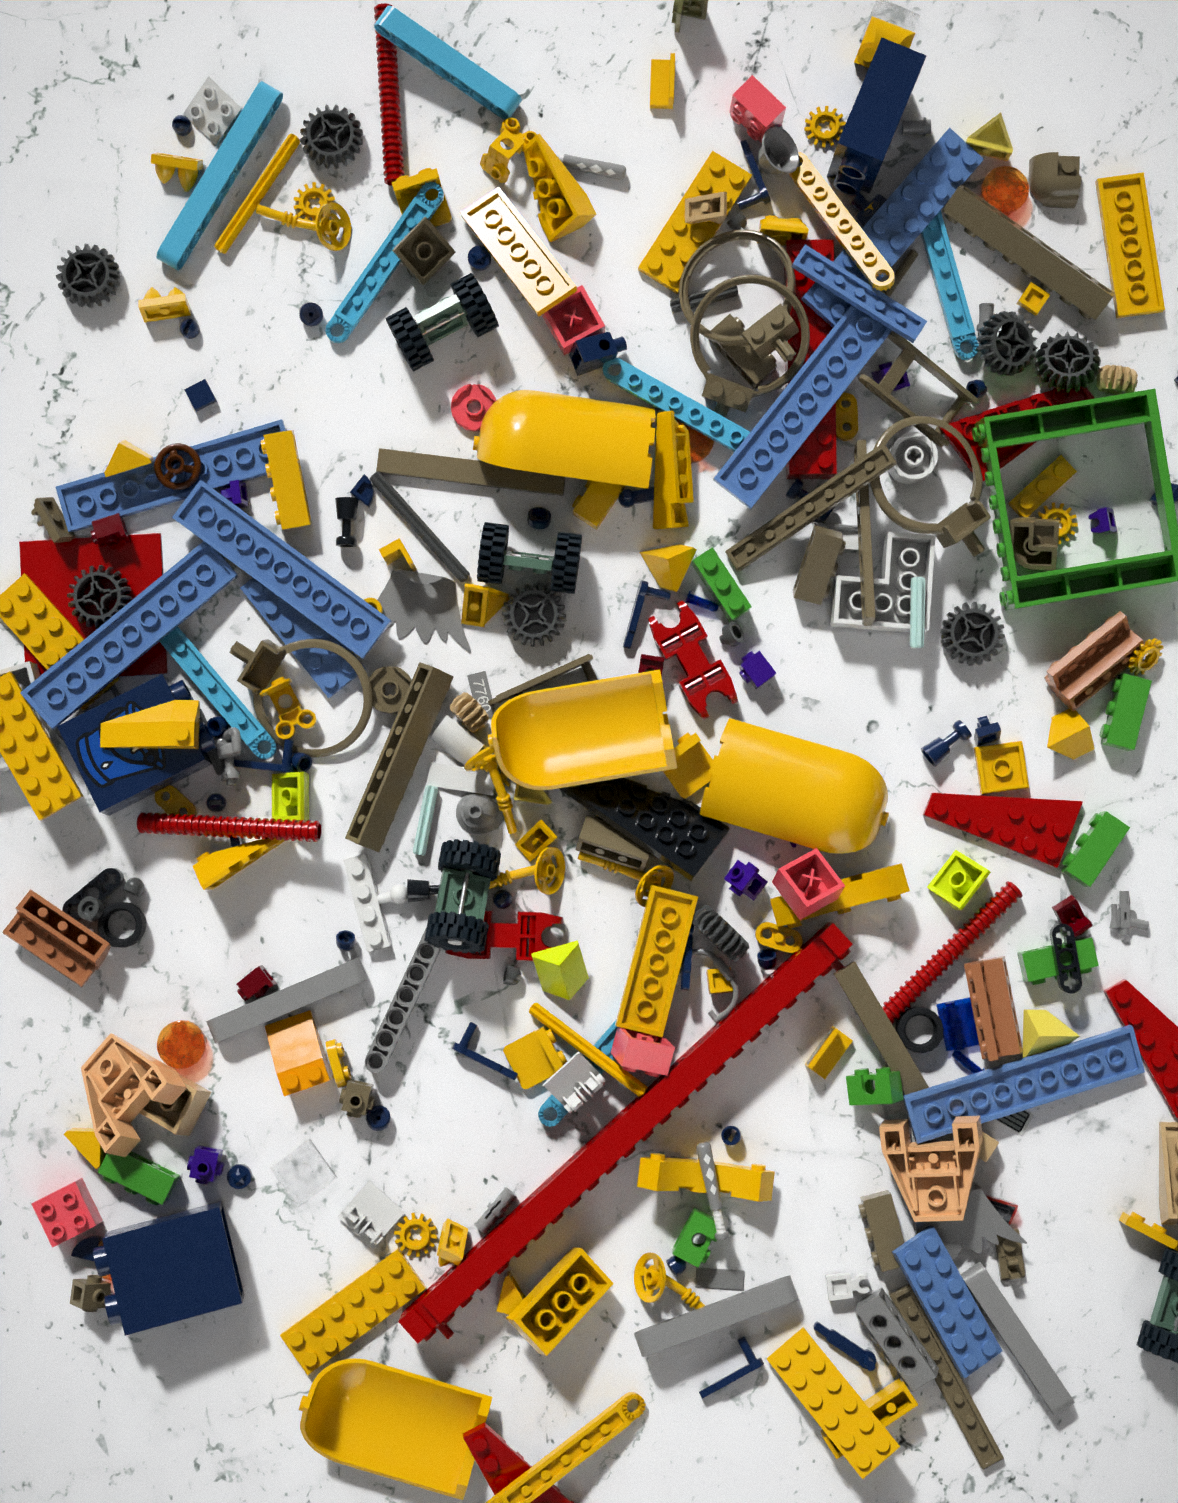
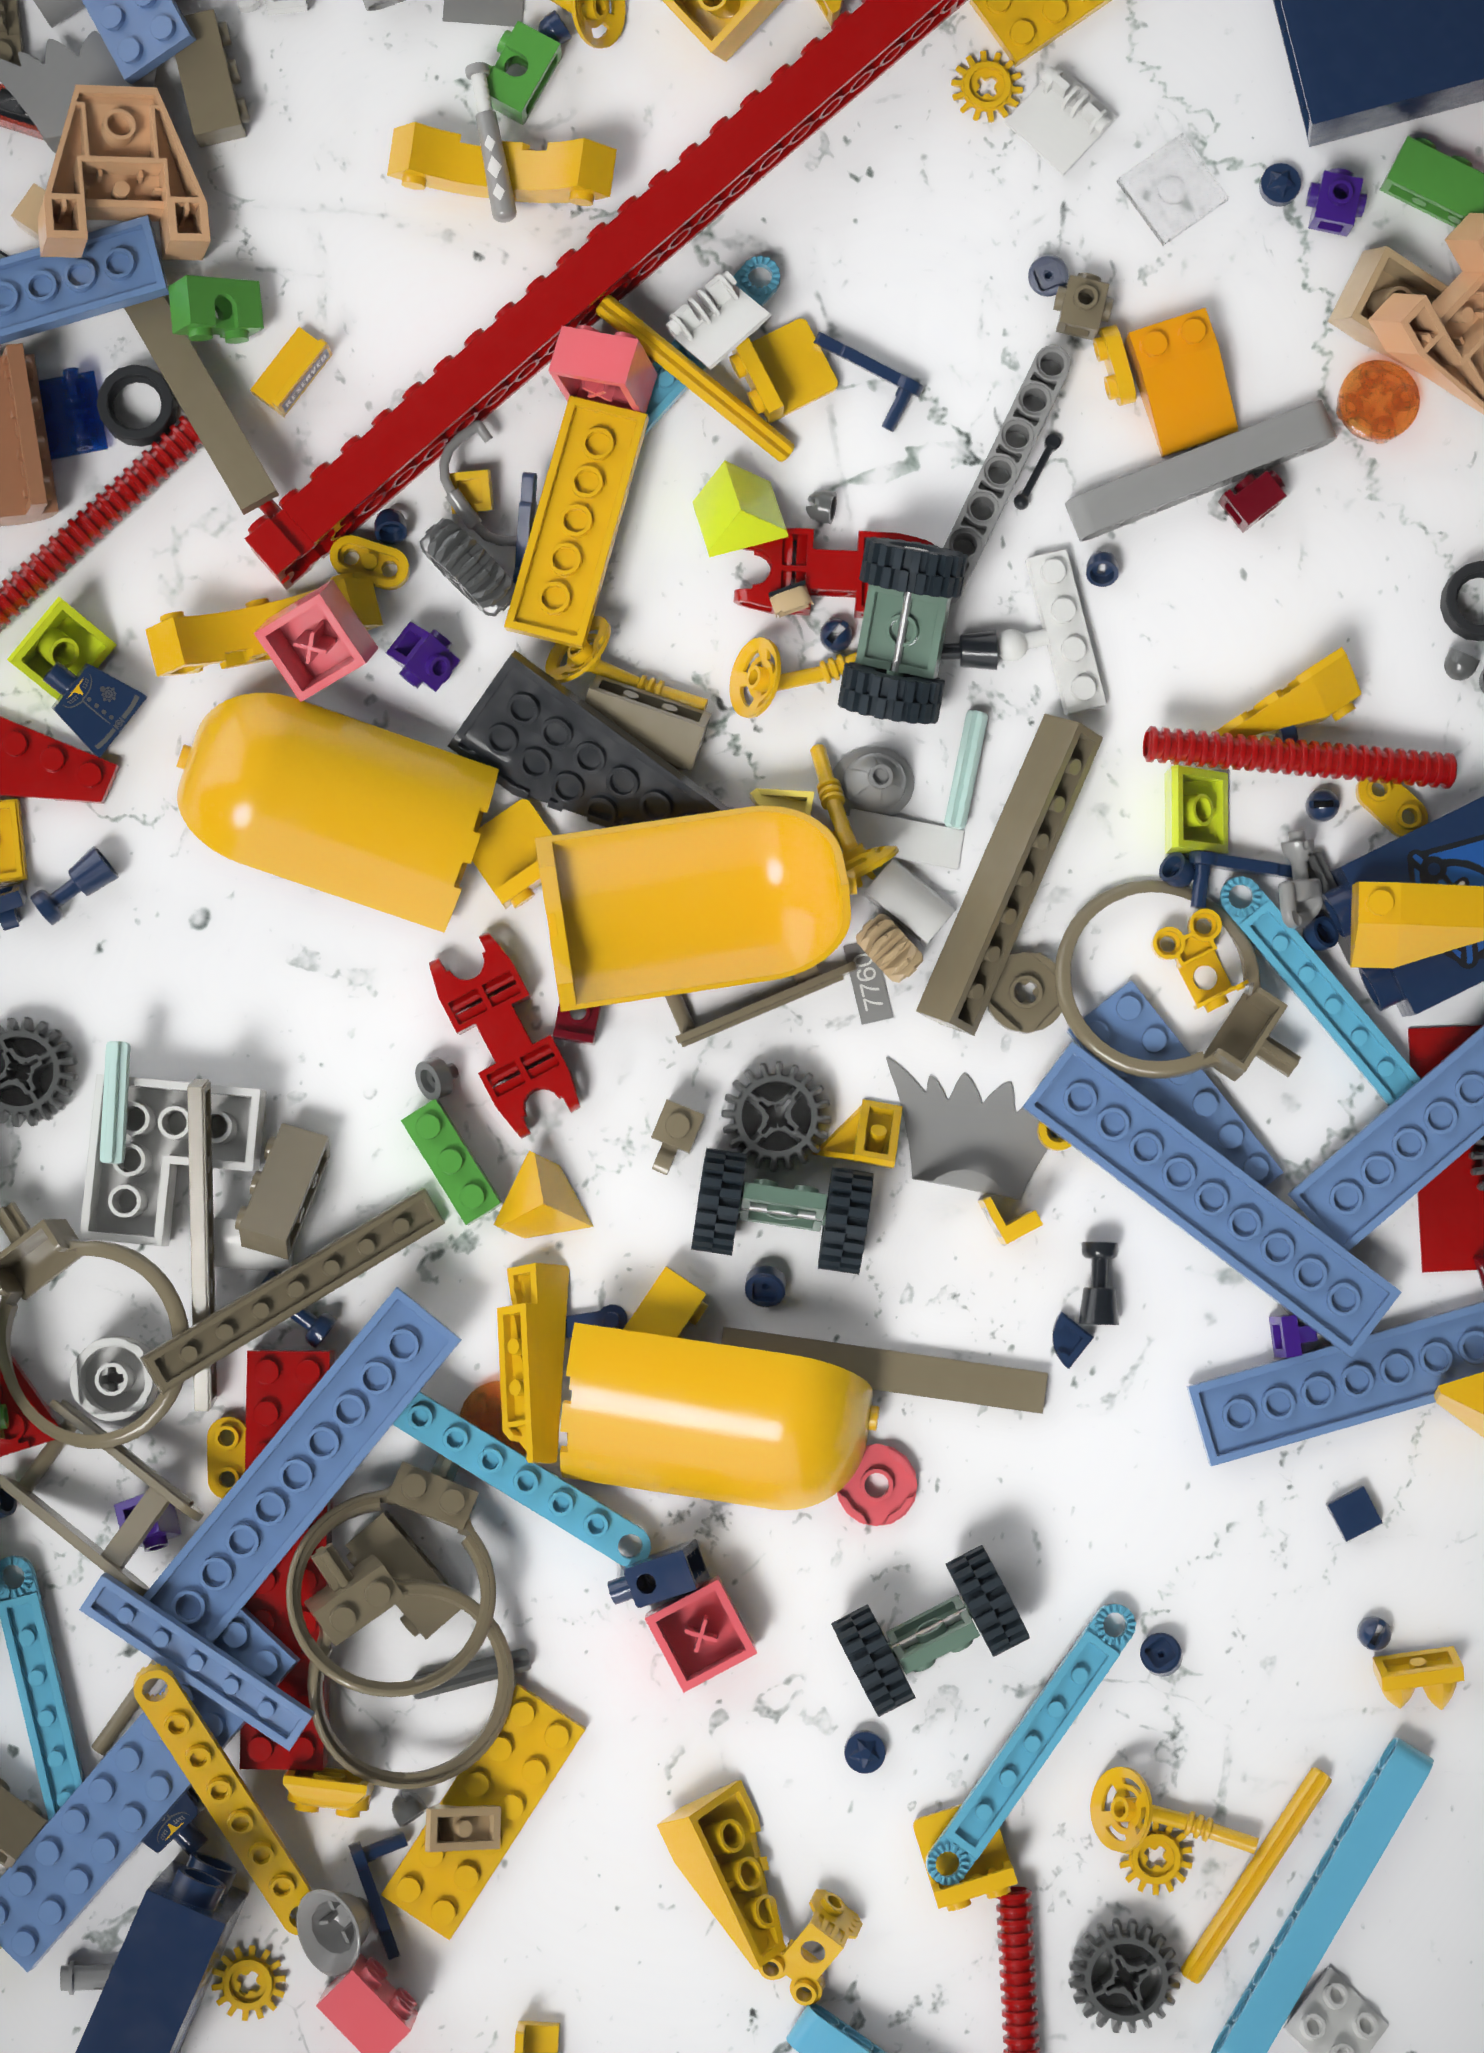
camera: 175 degrees right, 0 degrees up
(171, 460) = (1401, 1413): reddish brown piece -> none
(181, 129) = (1390, 1994): dark blue hinge -> none
(187, 168) = (1380, 1925): yellow tile -> none
(287, 479) = (1202, 1356): yellow brick -> none
(375, 1017) = (1051, 444): none -> black hinge
(419, 526) = (972, 1275): dark grey axle -> none
(423, 251) = (961, 1759): dark tan slope -> none
(451, 1243) = (925, 66): yellow tile -> none
(495, 1210) = (853, 122): light grey pin -> none
(518, 251) = (794, 1756): plate -> none
(529, 916) = (790, 599): none -> tan piece
(536, 840) = (776, 732): yellow slope -> none
(592, 604) = (676, 1131): none -> dark tan brick
(594, 166) = (661, 1915): light grey piece -> none
(643, 589) = (589, 1155): dark blue piece -> none
(701, 602) = (487, 1135): clear blue piece -> none
(726, 1133) = (466, 240): dark blue hinge -> none
(756, 669) = (396, 1016): dark purple brick -> none
(938, 849) = (93, 704): none -> dark blue torso
(966, 1062) = (58, 350): clear blue piece -> none

